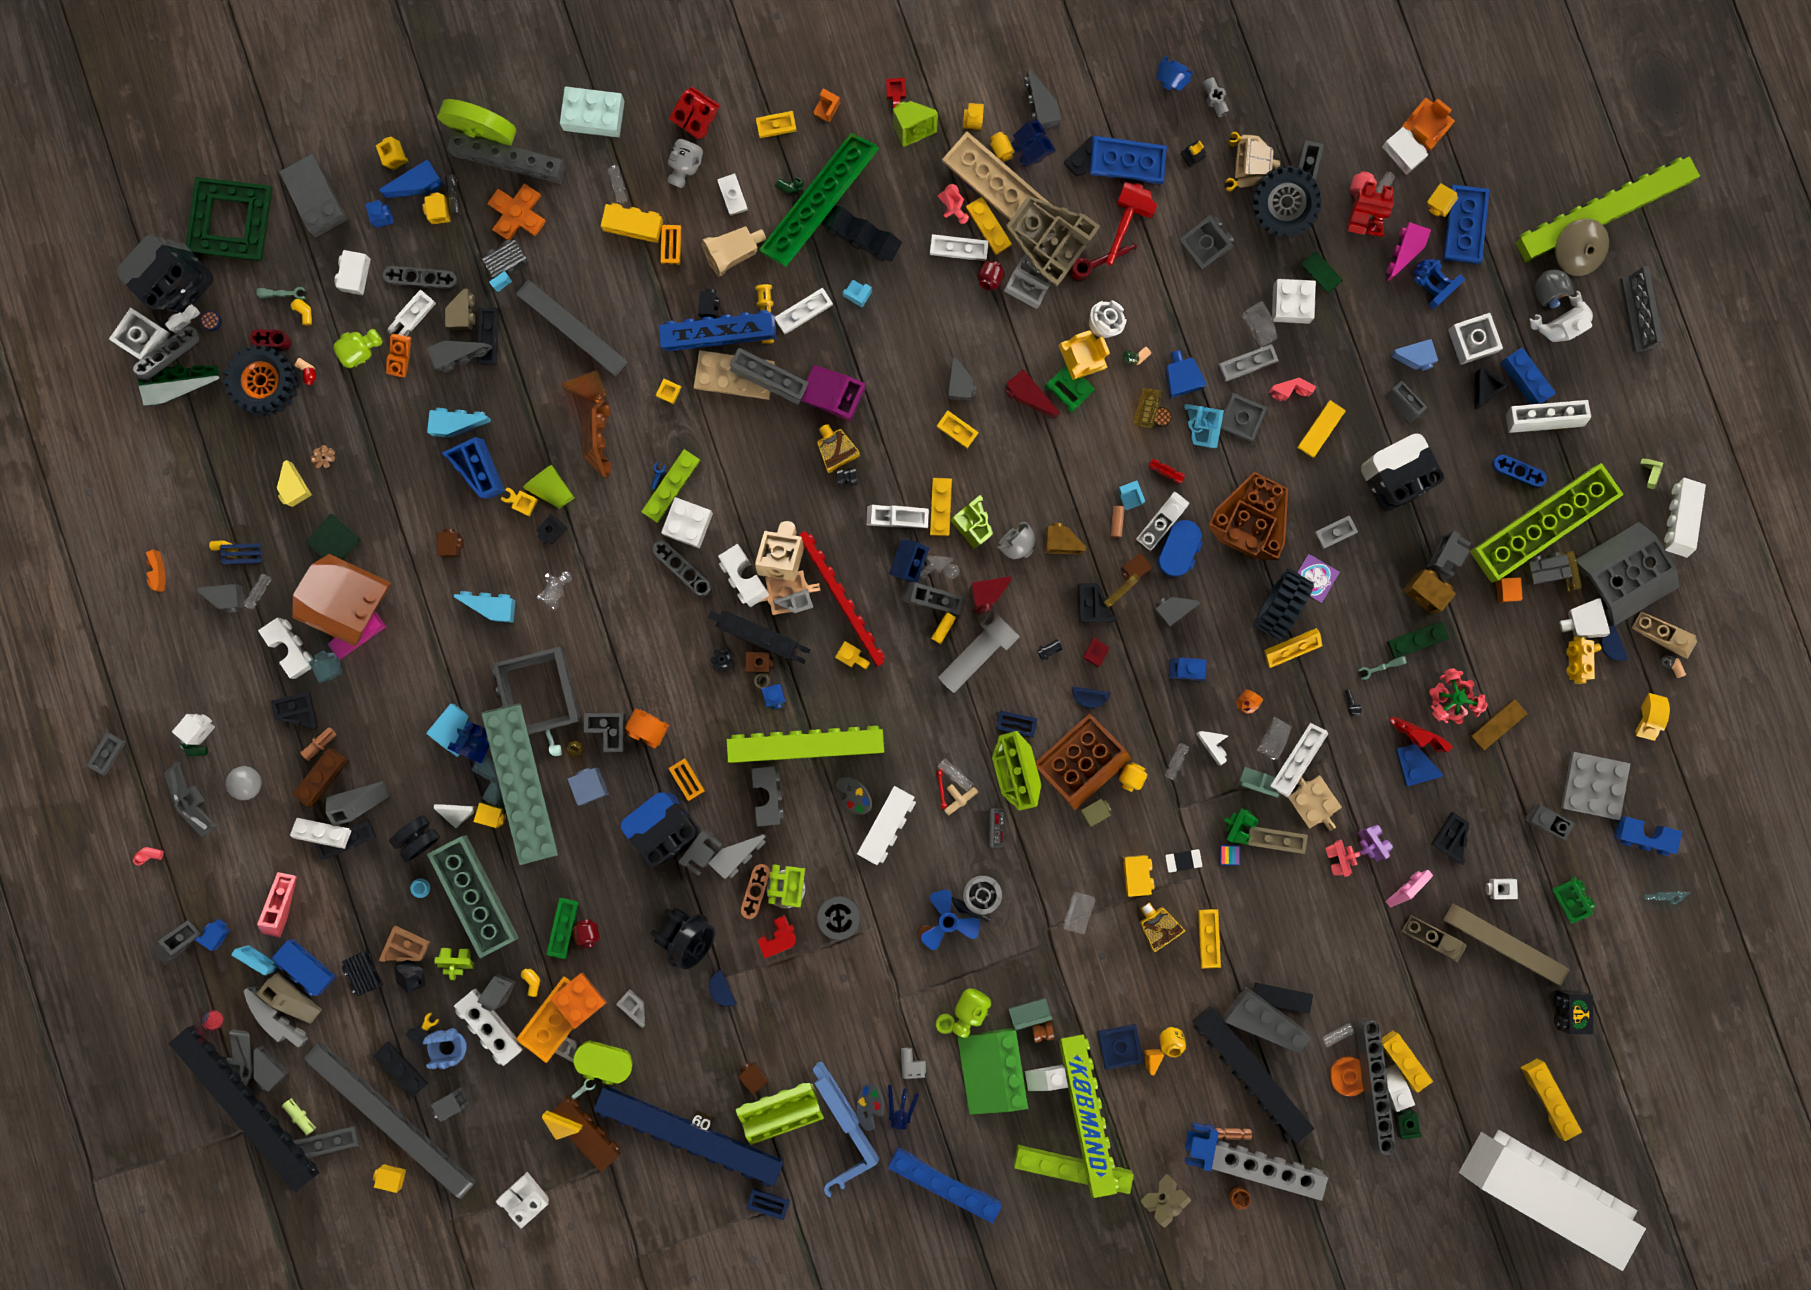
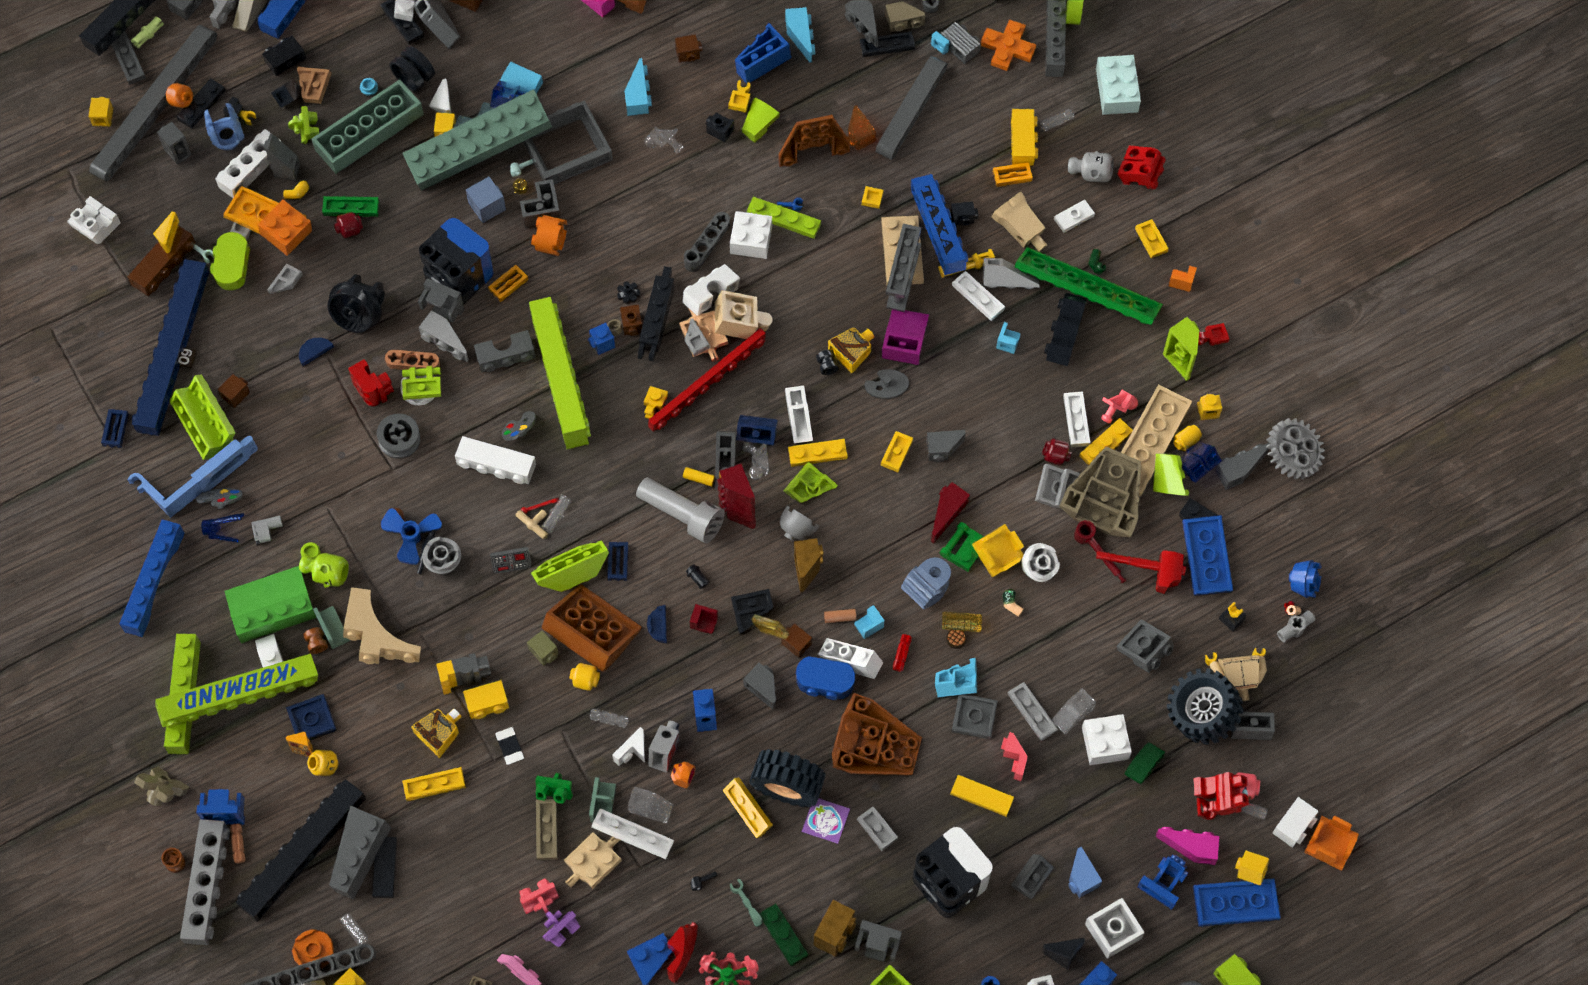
camera: 80 degrees right, 20 degrees down
(391, 1092) = (179, 95): none -> orange head
(787, 280) = (1003, 273): none -> light grey slope
(880, 417) = (893, 384): none -> dark grey piece
(1041, 173) = (1169, 475): none -> lime slope
(1045, 55) = (1294, 438): none -> light grey gear
(1058, 973) = (375, 639): none -> tan arch
(1078, 912) = (438, 650): clear panel -> none
(1107, 437) = (928, 582): none -> sand blue piece
(1107, 893) = (463, 672): none -> dark grey hips
(1183, 375) = (1002, 648): blue torso -> none
(1198, 95) = (1291, 609): none -> light nougat arm
(1225, 719) = (664, 746): none -> light grey torso
(1229, 855) = (522, 787): tile -> none

